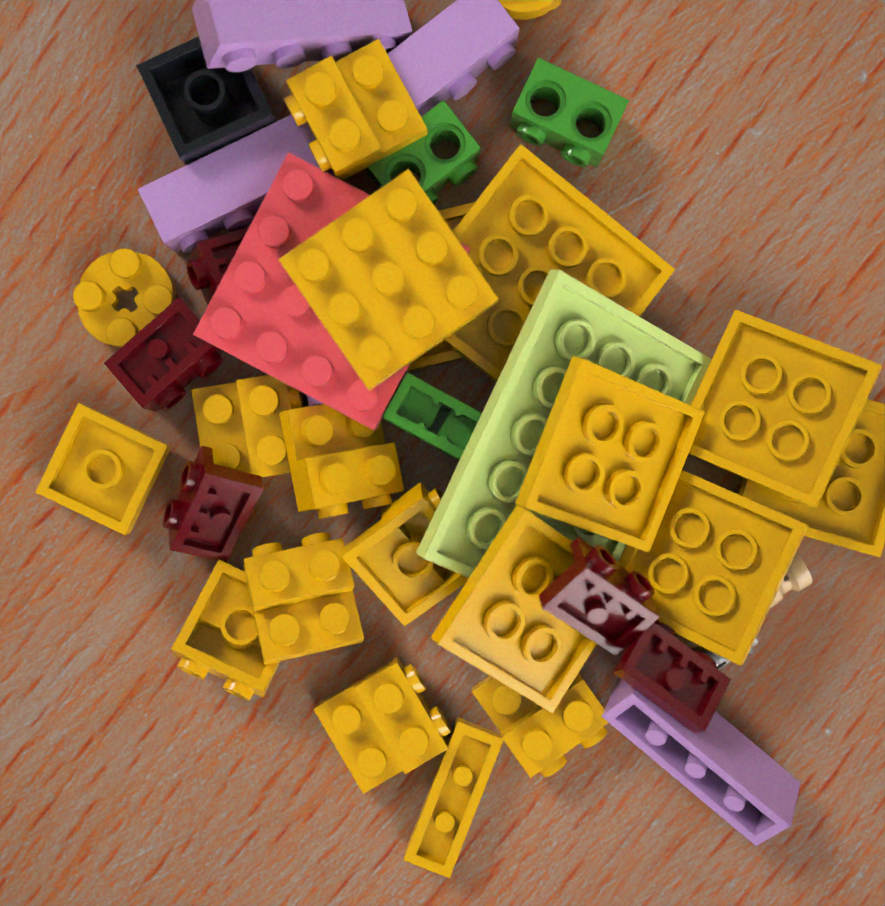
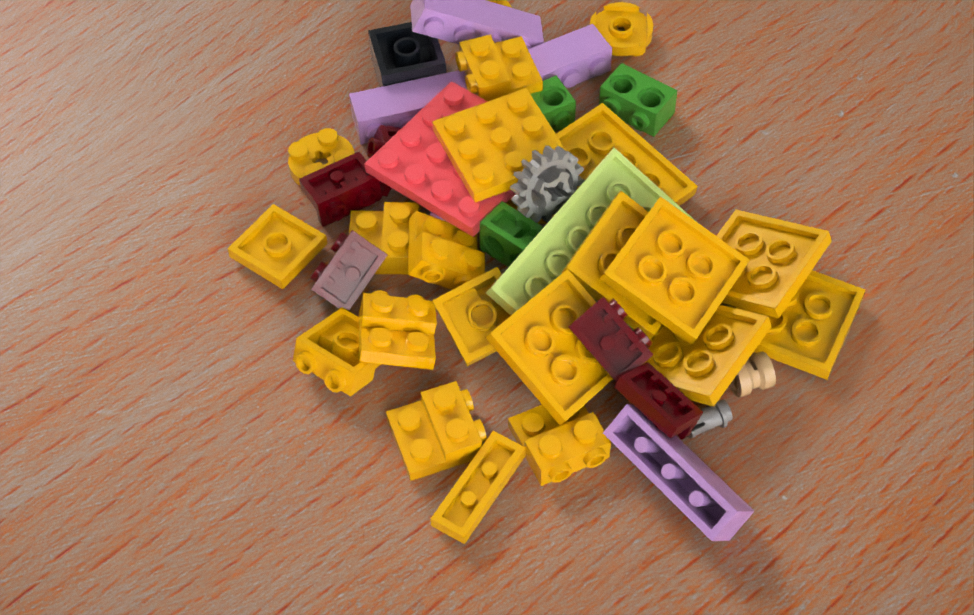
camera: 15 degrees right, 35 degrees down
(471, 355) = (546, 183): none -> light grey gear
(672, 468) = (675, 270): none -> yellow plate

